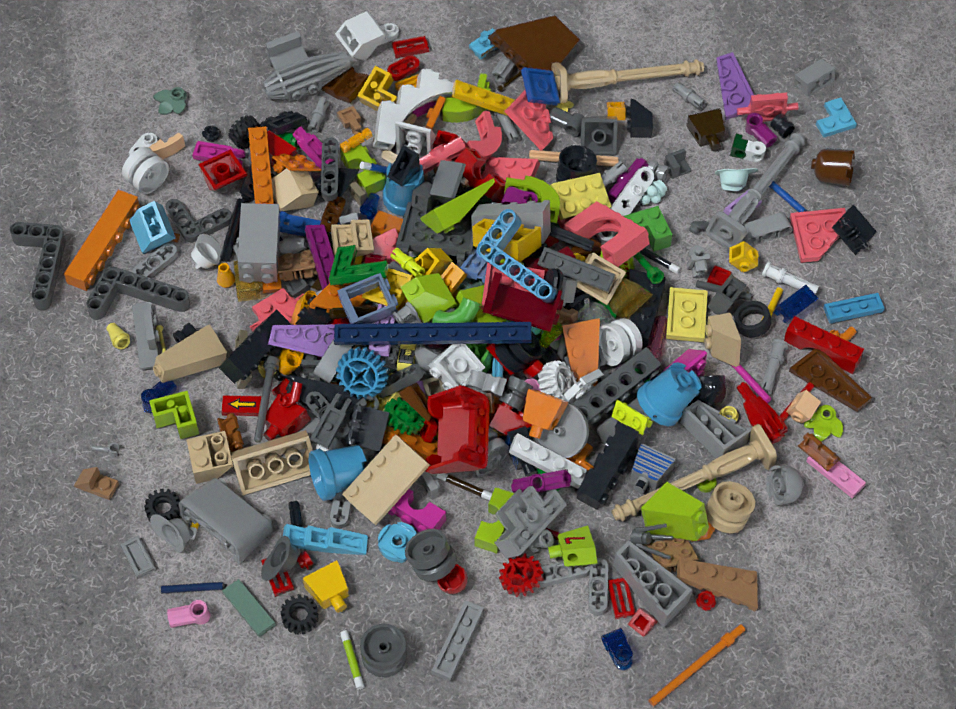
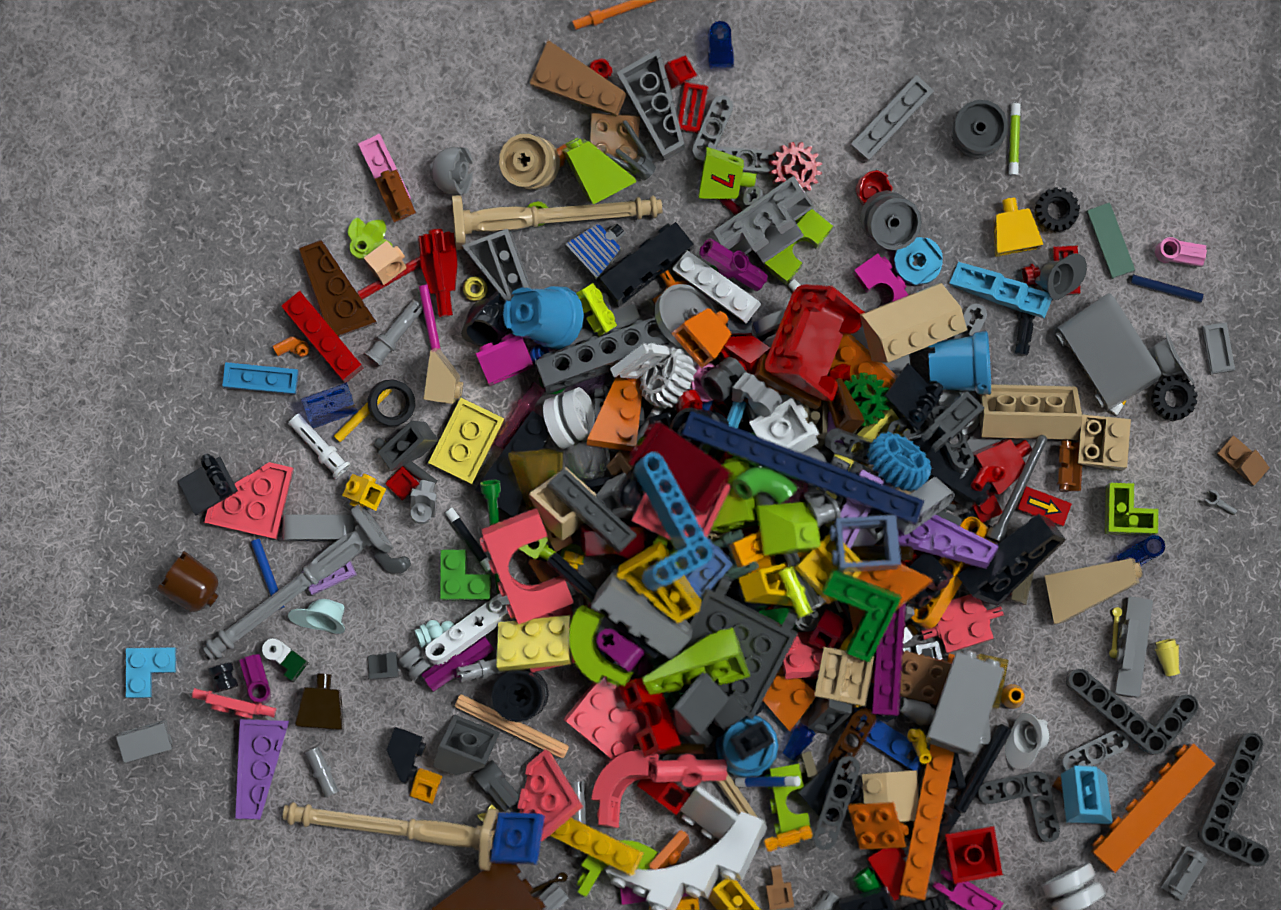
camera: 160 degrees left, 25 degrees up
(68, 210) = (1184, 873): none -> light grey hinge
(188, 329) = (1086, 625): black wheel -> none
(285, 227) = (919, 744): none -> yellow arm
(310, 145) = (845, 854): dark pink hinge -> none

